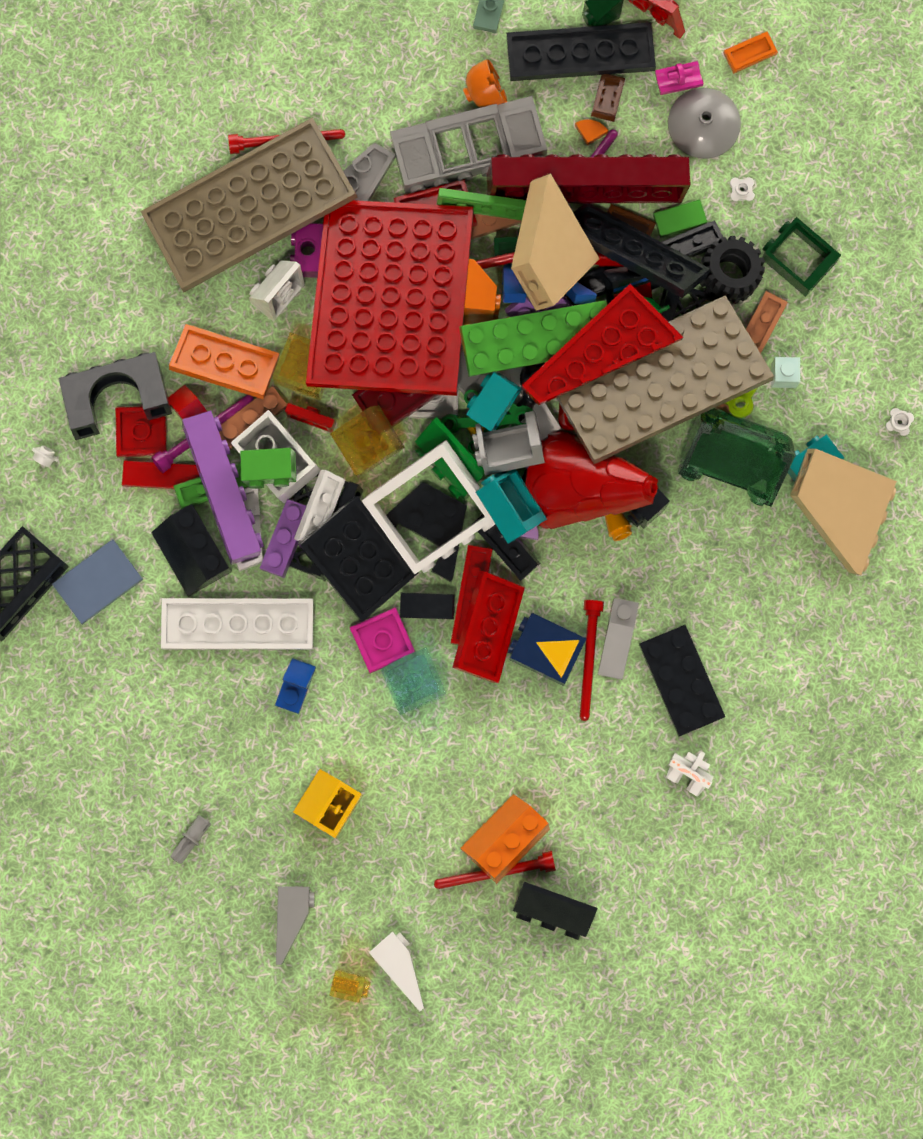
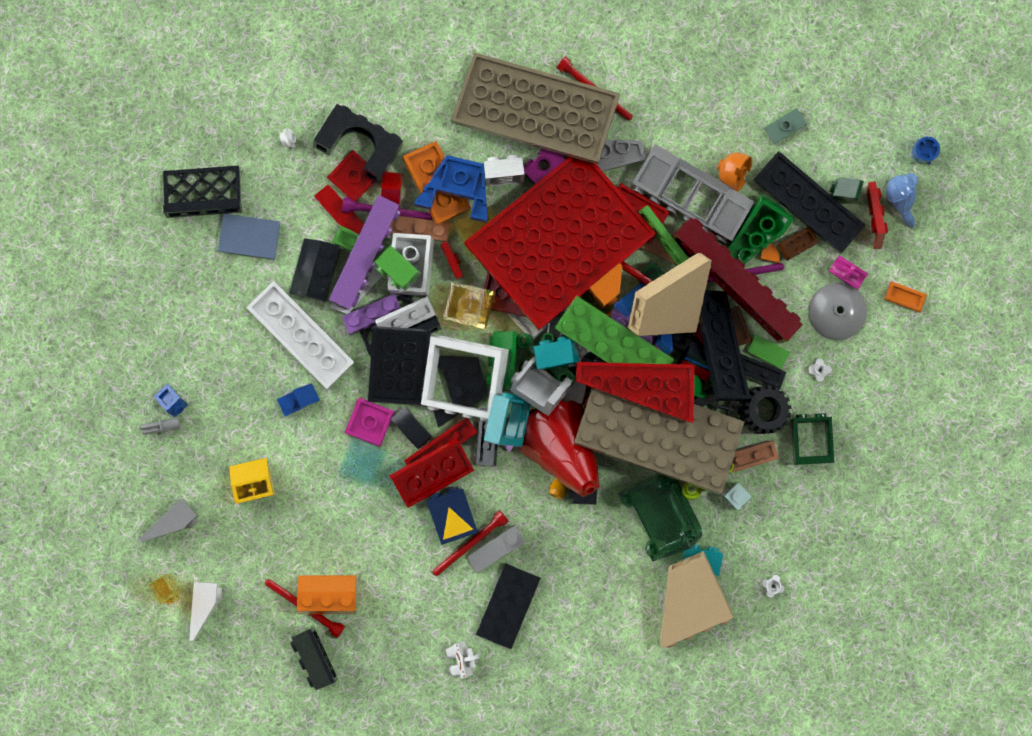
camera: 50 degrees right, 5 degrees up
(176, 806) = (170, 401): none -> bracket
(243, 335) = (460, 179): none -> blue wing
(561, 113) = (761, 227): none -> green wedge

